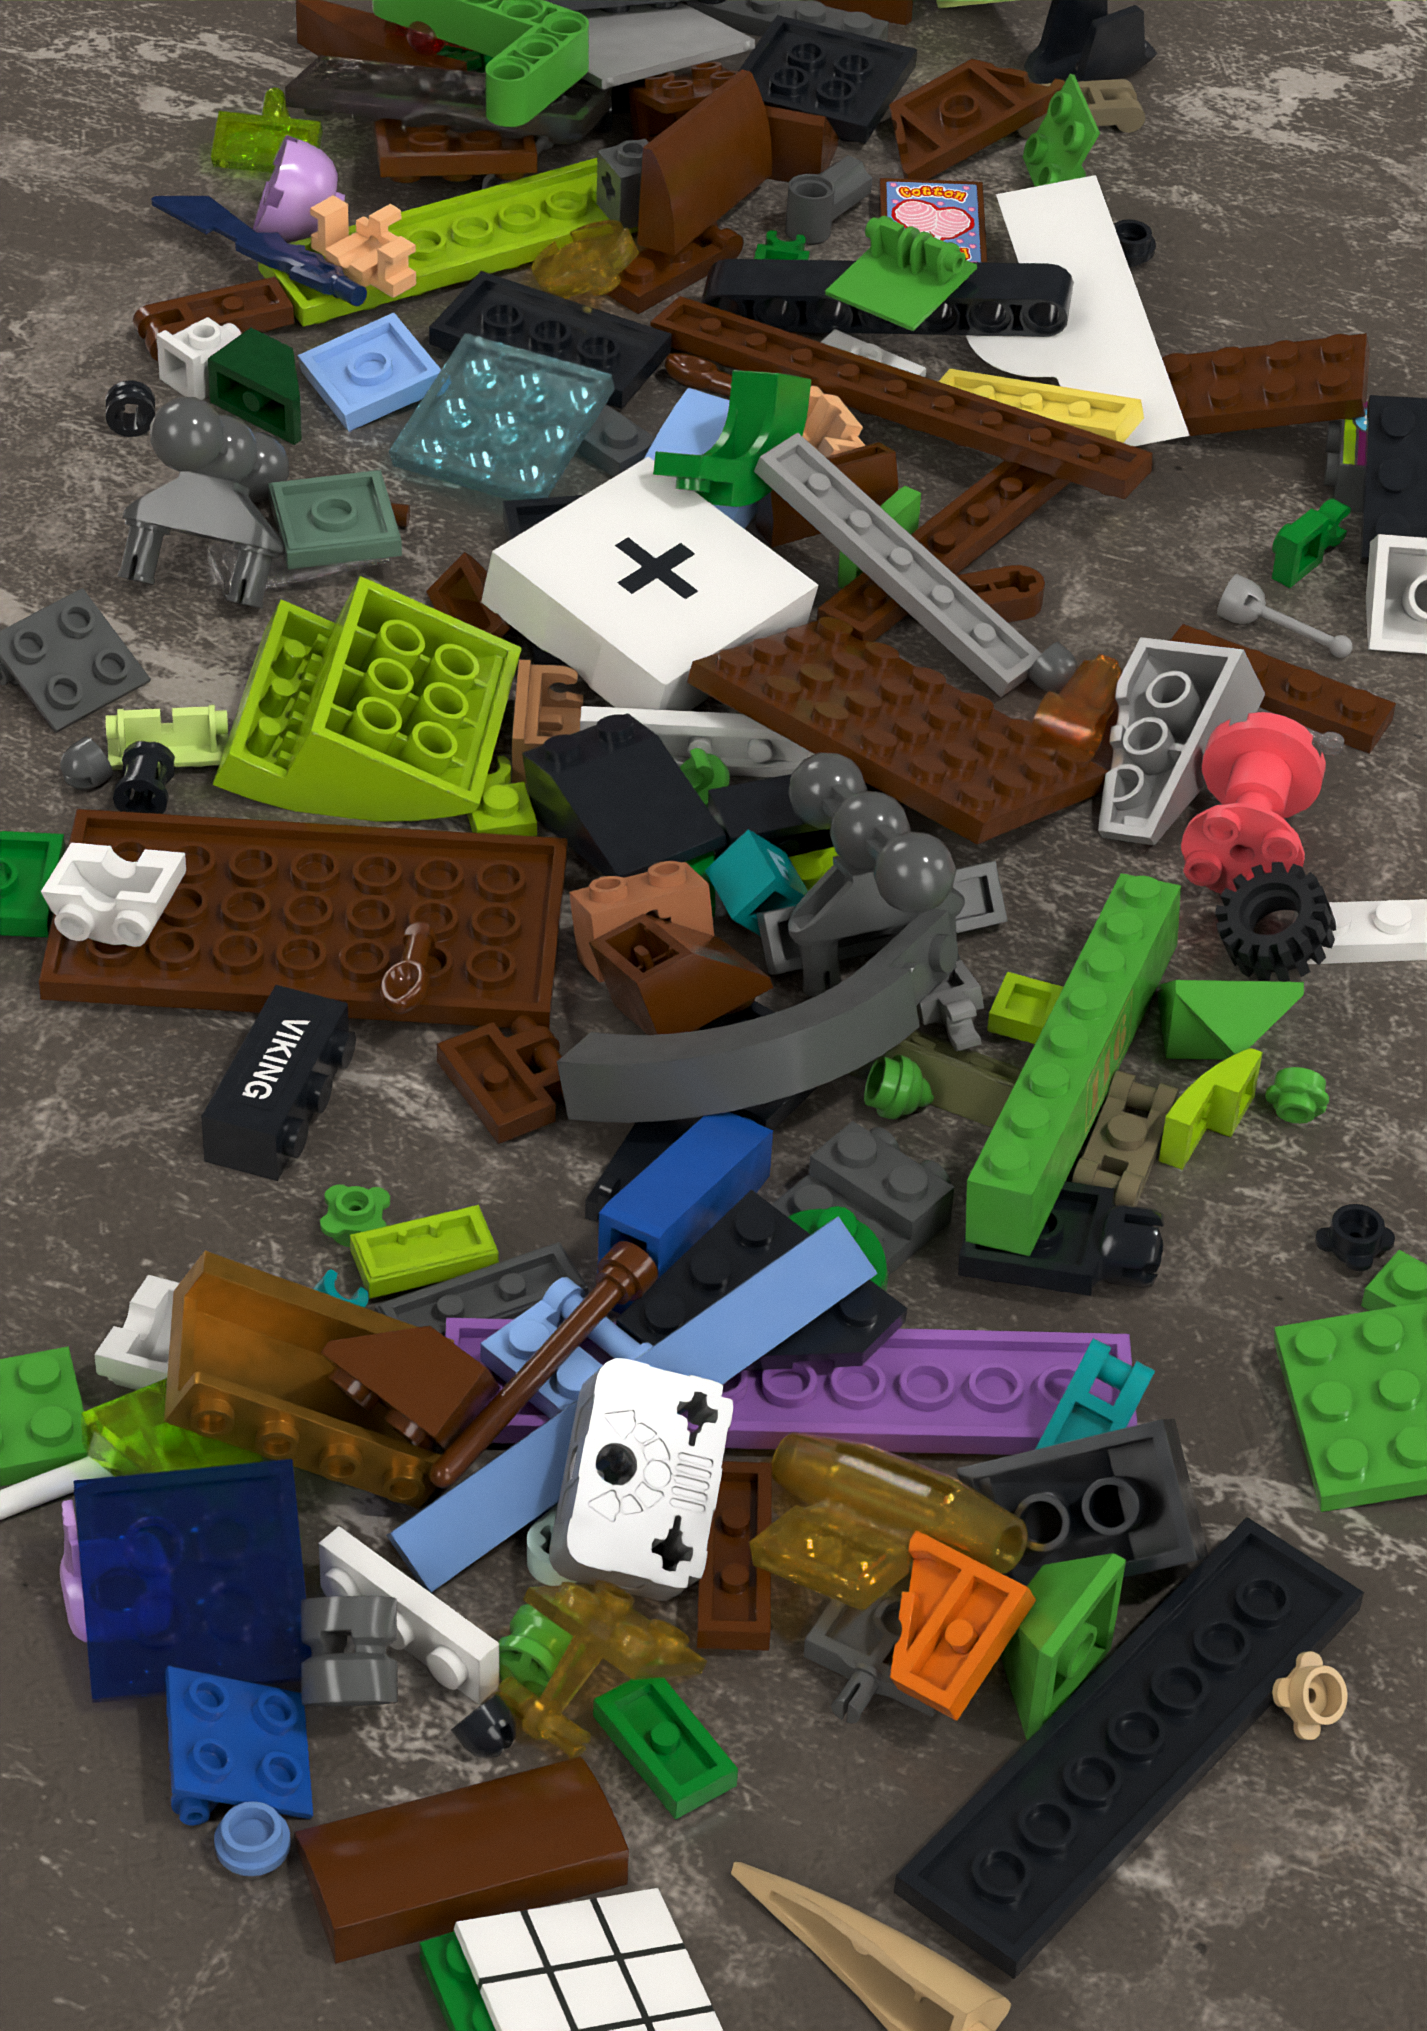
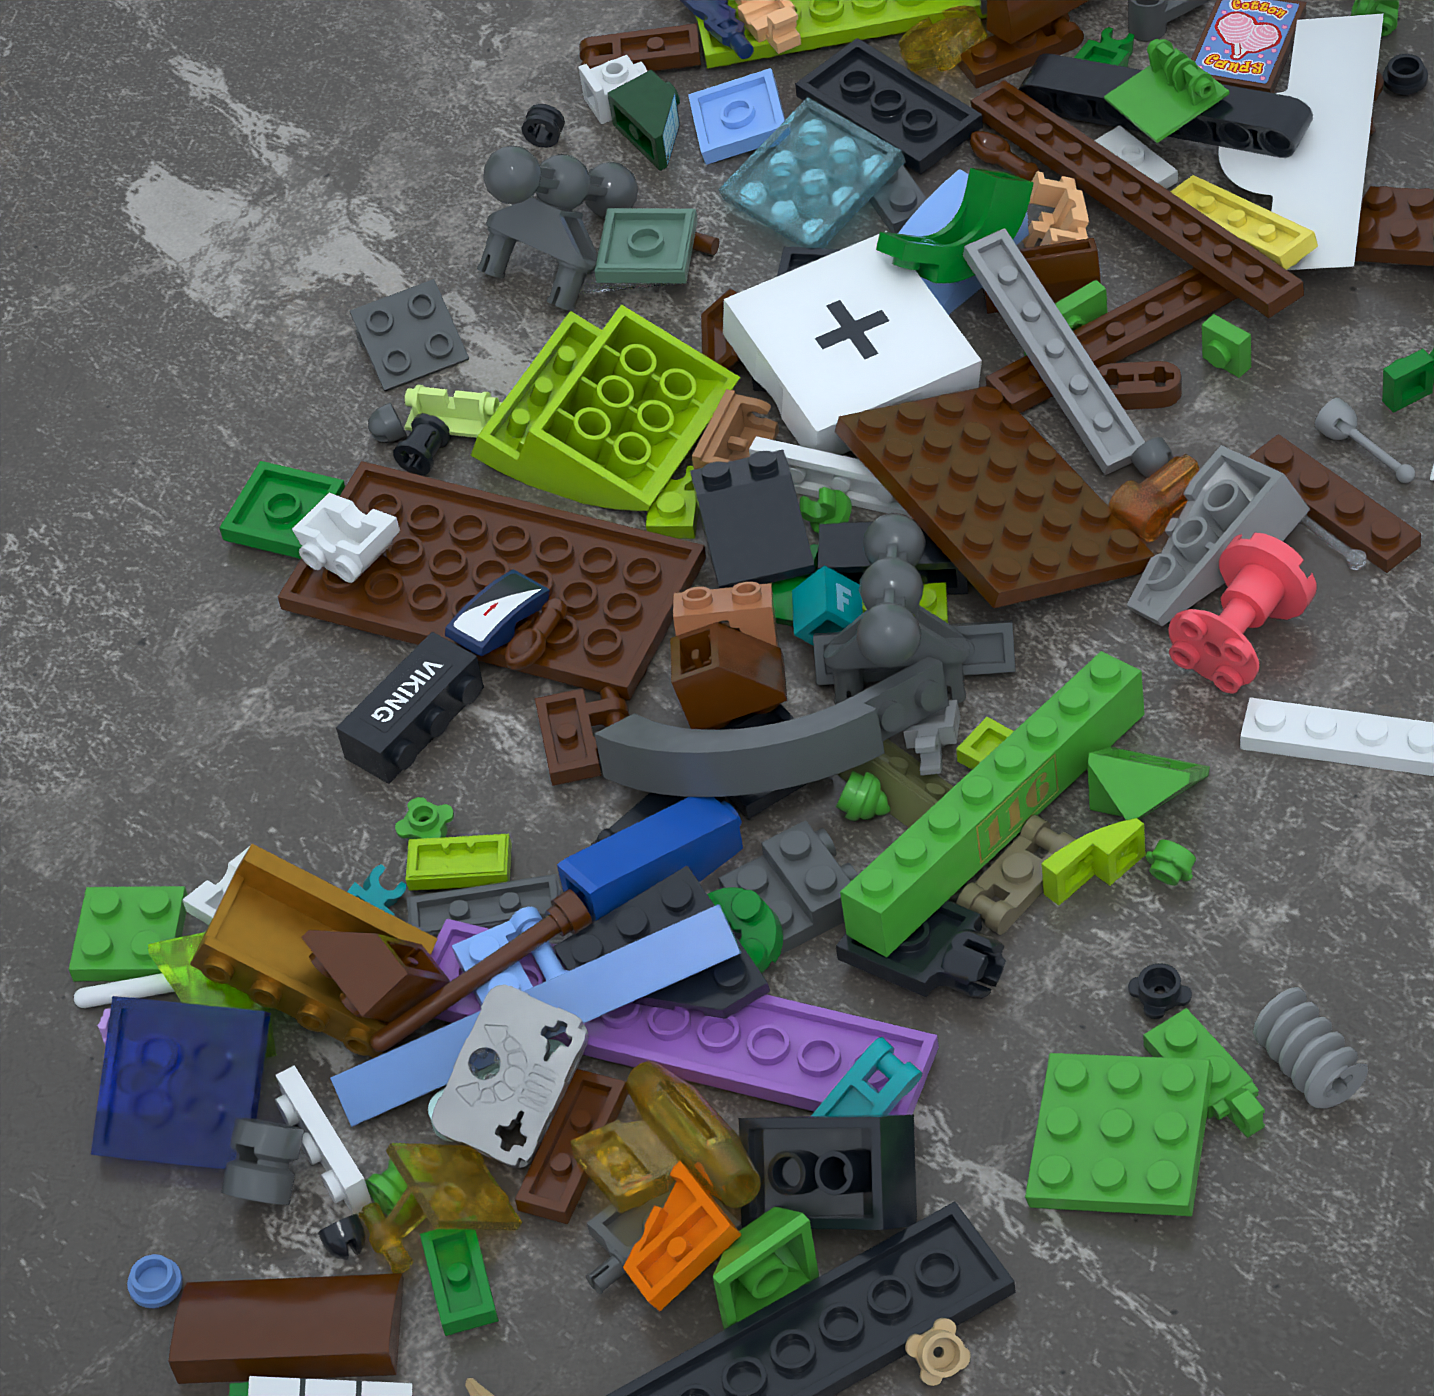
camera: 30 degrees right, 5 degrees up
(235, 1746) = (168, 1211): blue hinge -> none
(348, 950) = (493, 613): none -> slope
(1078, 539) = (1226, 346): none -> bright green plate
(1267, 895) = (1230, 729): black tyre -> none

